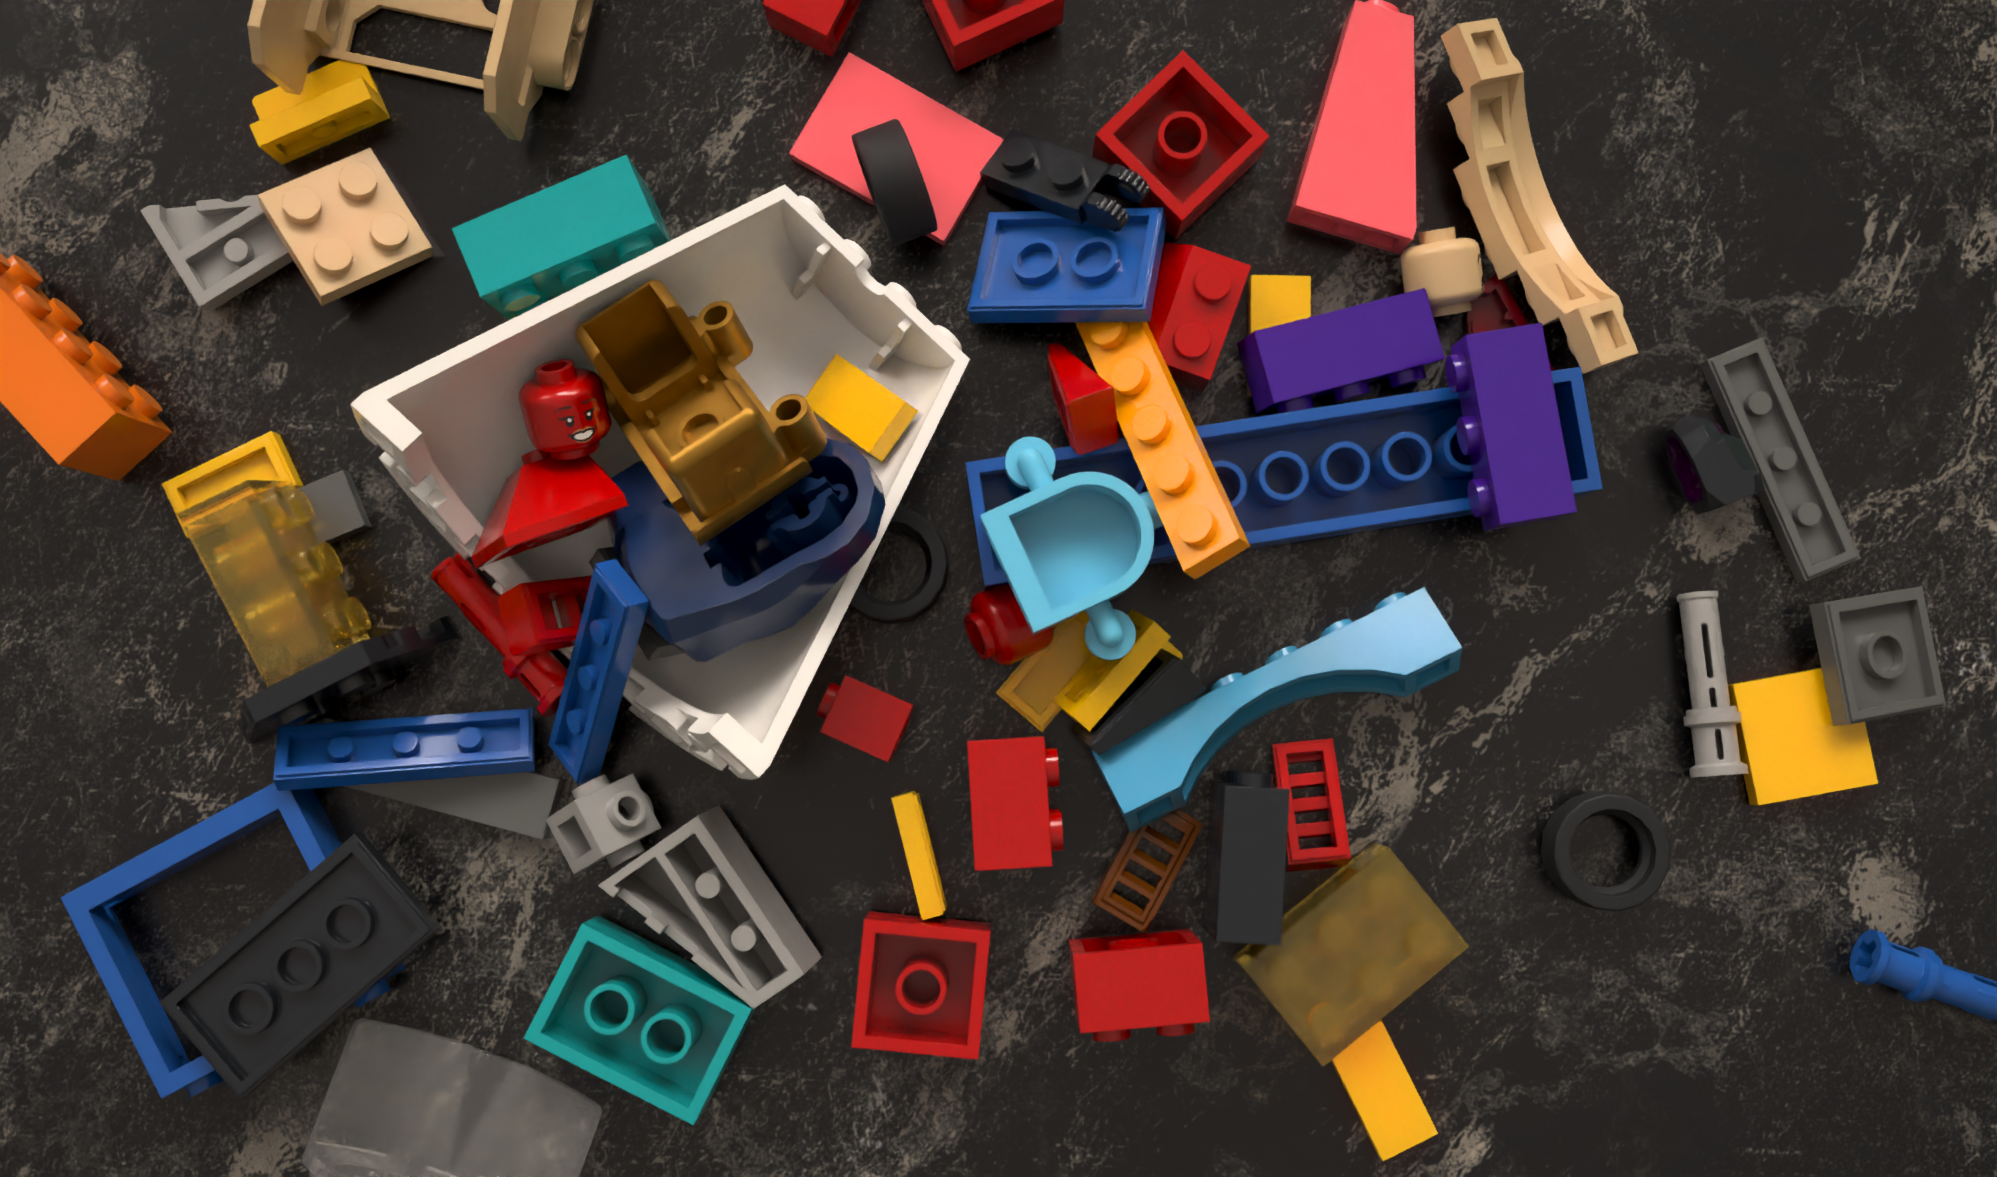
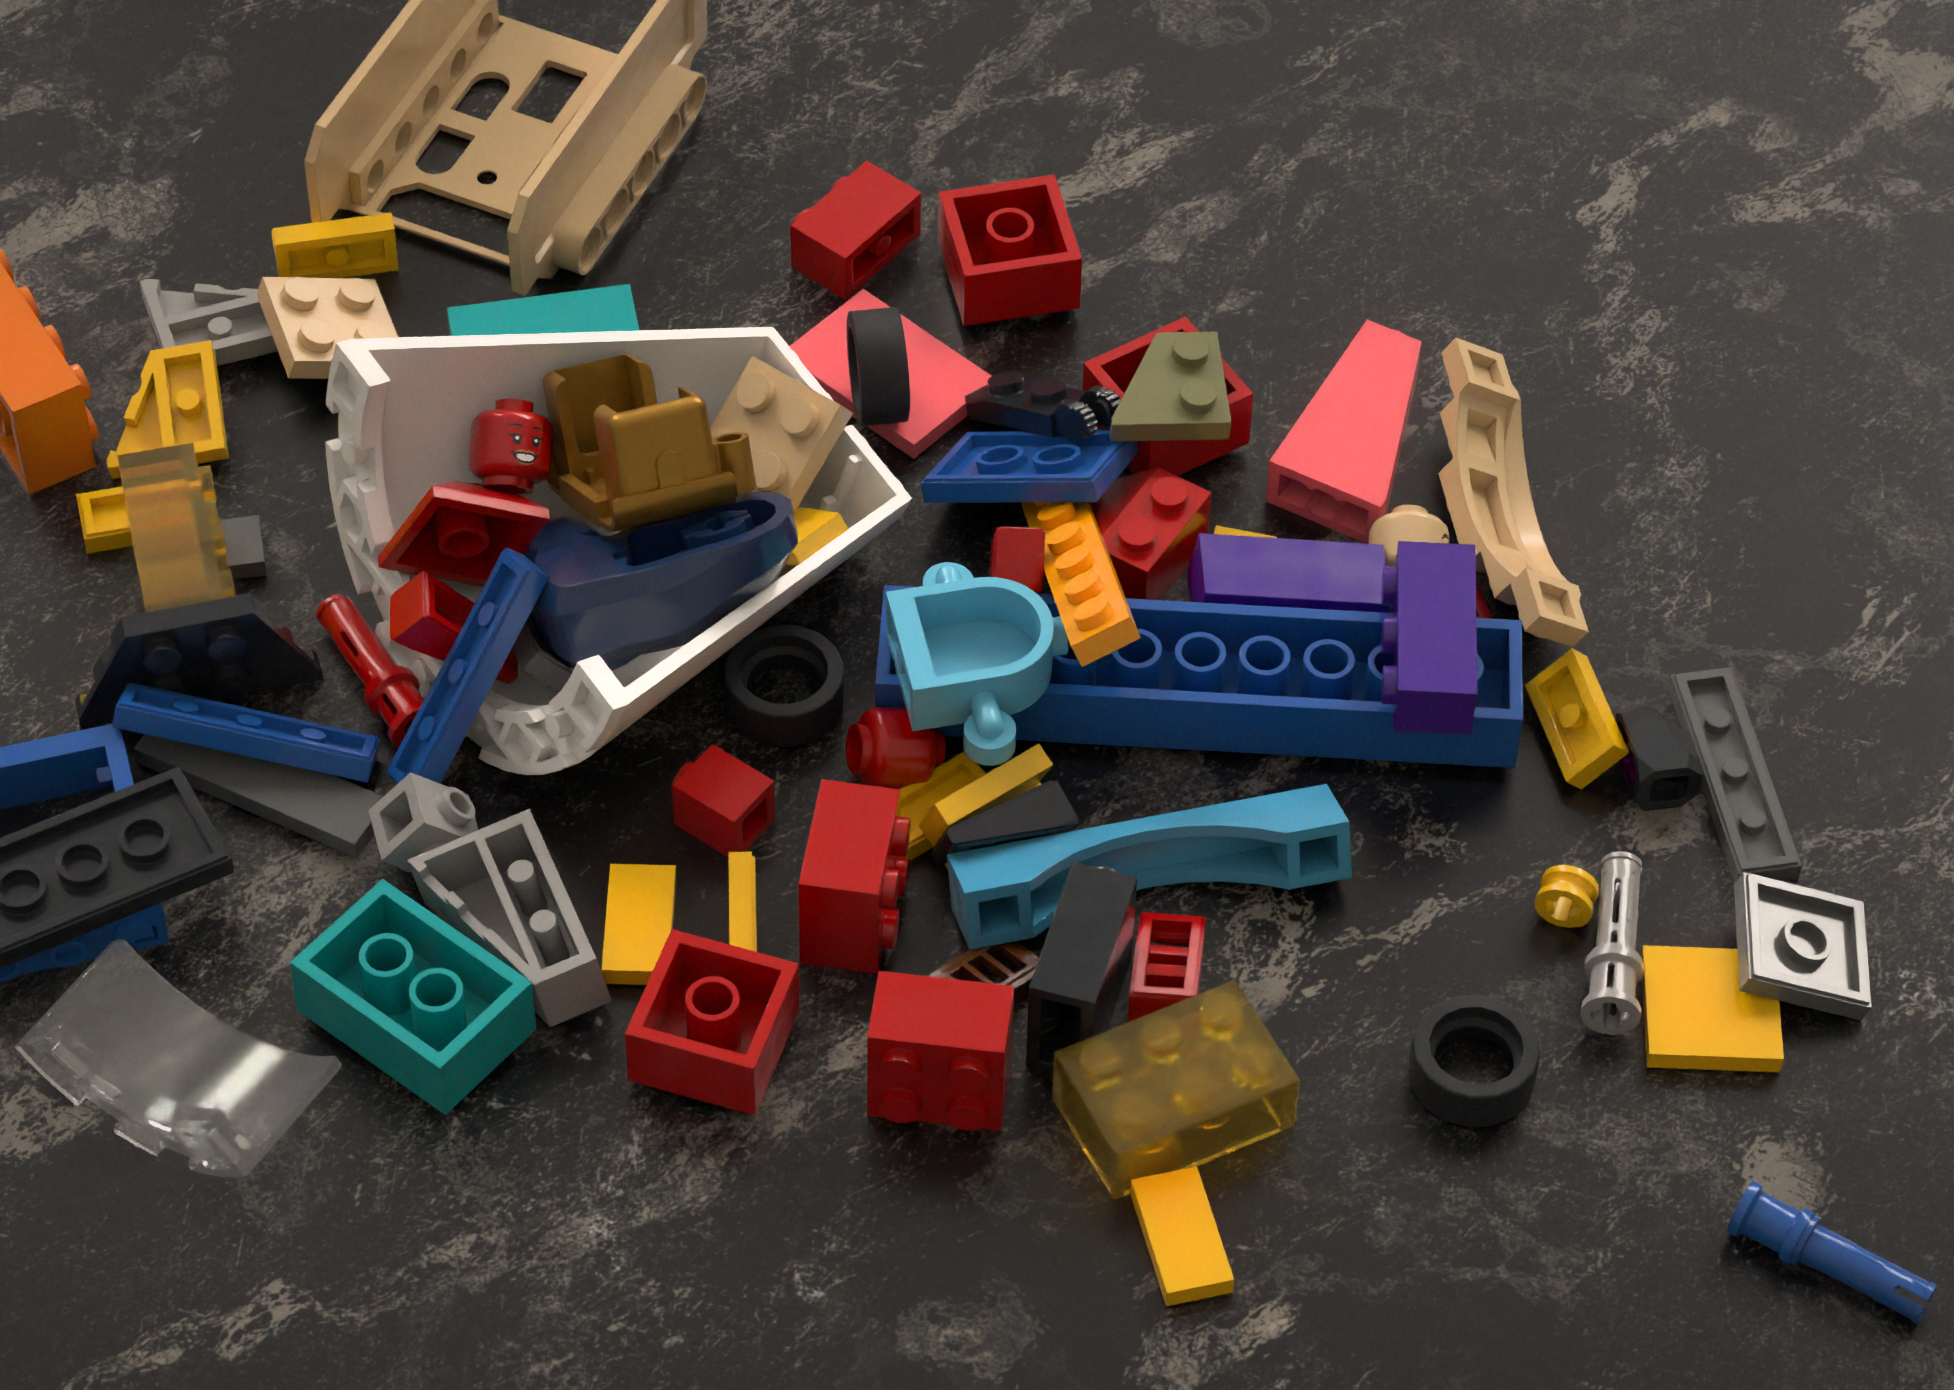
camera: 10 degrees right, 35 degrees down
(224, 367) = (176, 406): none -> yellow wing
(816, 315) = (786, 426): none -> tan plate
(823, 862) = (637, 920): none -> yellow tile
(1198, 158) = (1175, 392): none -> olive wing
(1634, 439) = (1576, 718): none -> yellow plate
(1657, 646) = (1566, 896): none -> yellow bush

